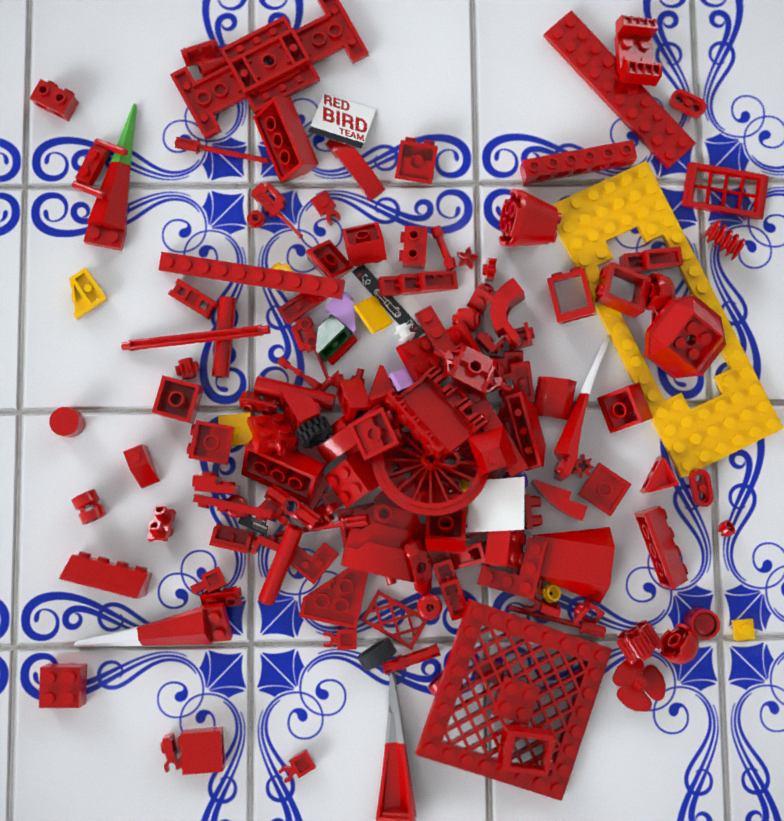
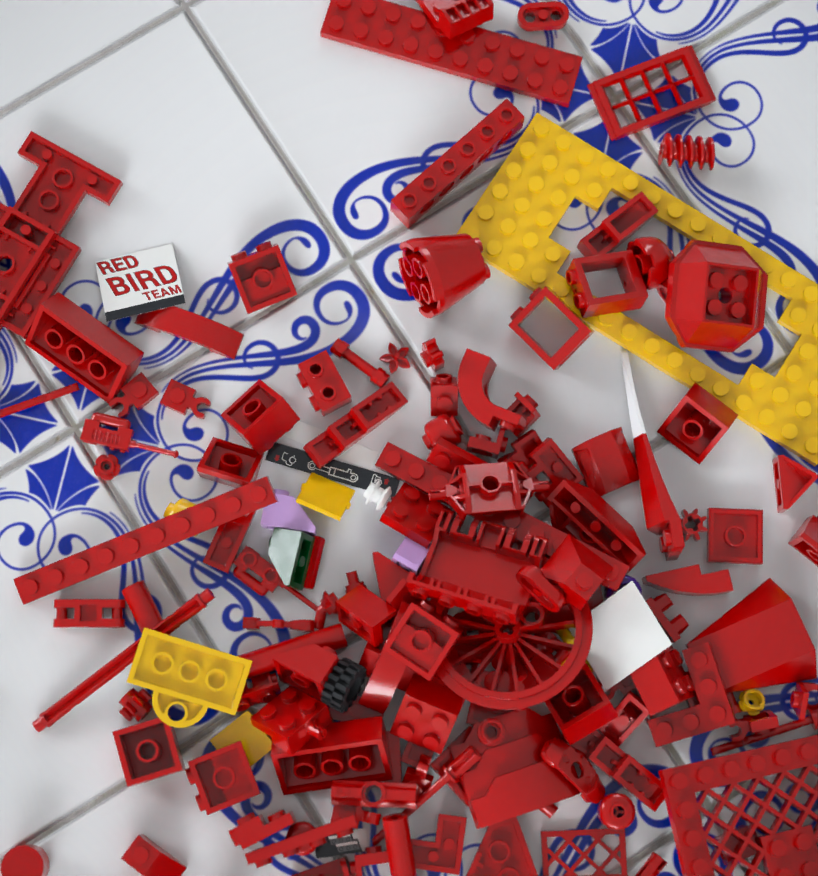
camera: 30 degrees left, 5 degrees down
(225, 370) = (187, 676): none -> yellow plate
(300, 187) = (137, 393): none -> red plate
(463, 440) = (534, 582): none -> red plate

